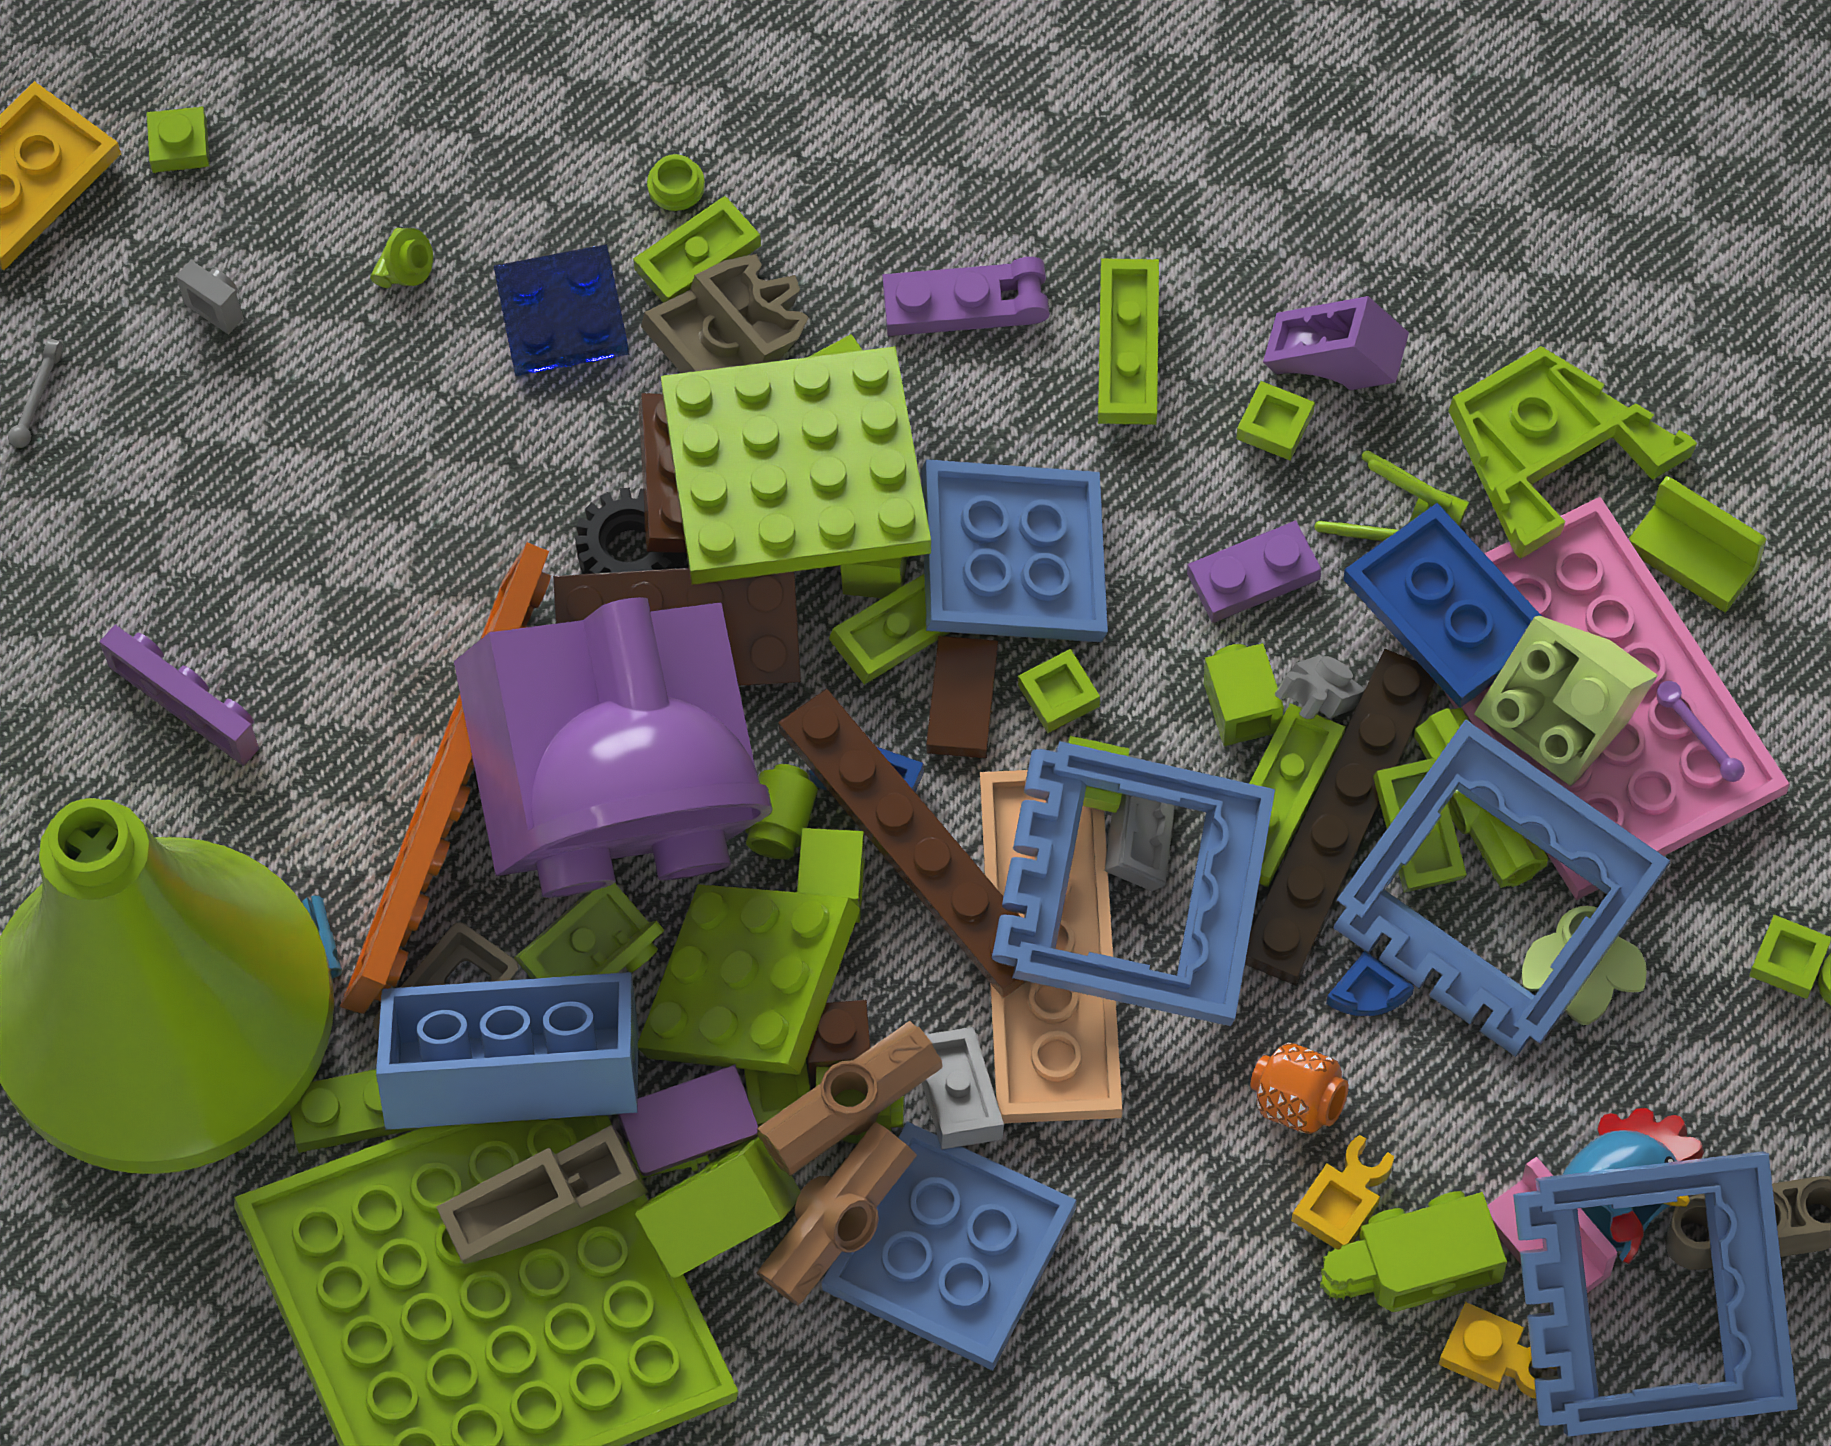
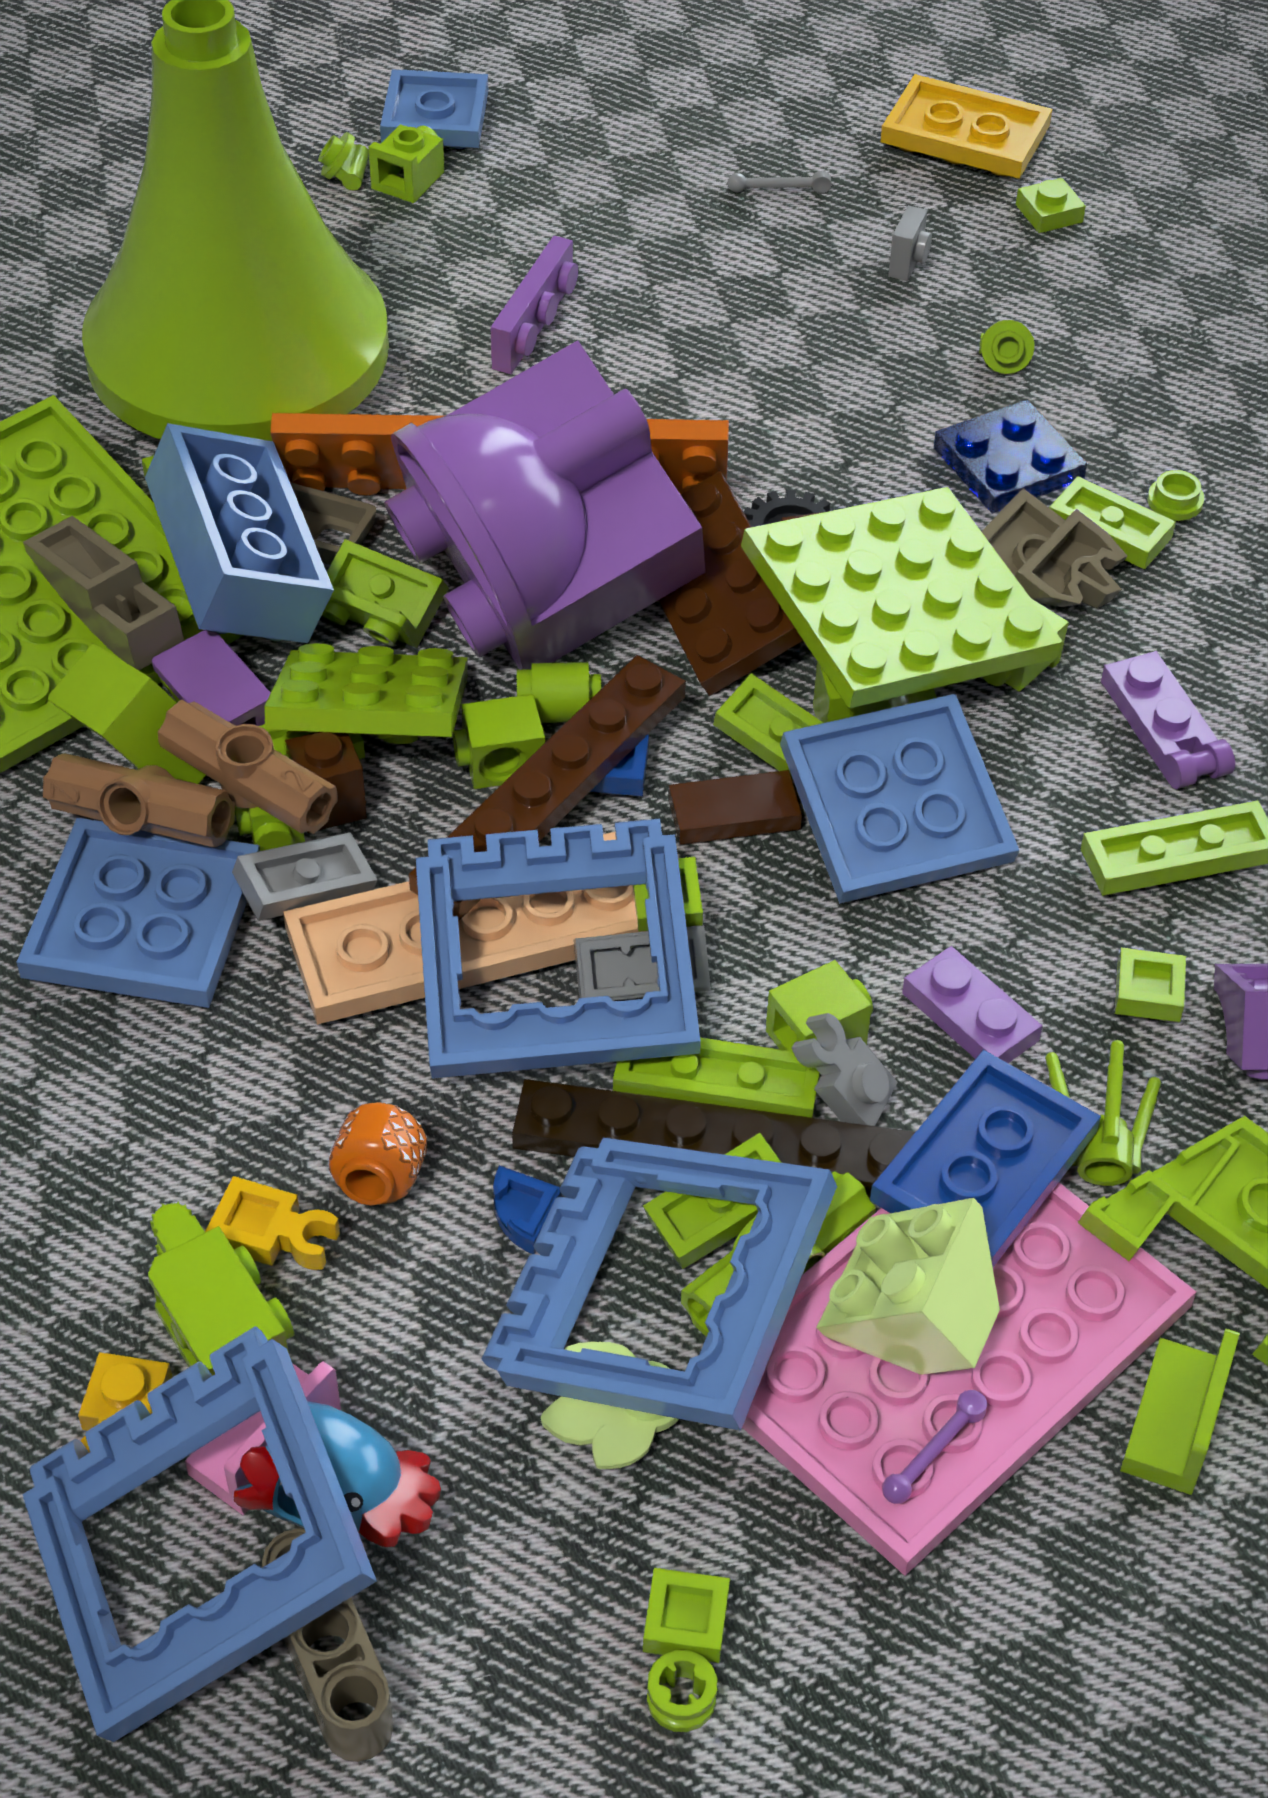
camera: 70 degrees right, 15 degrees down
(1059, 691) = (765, 872): lime plate -> none

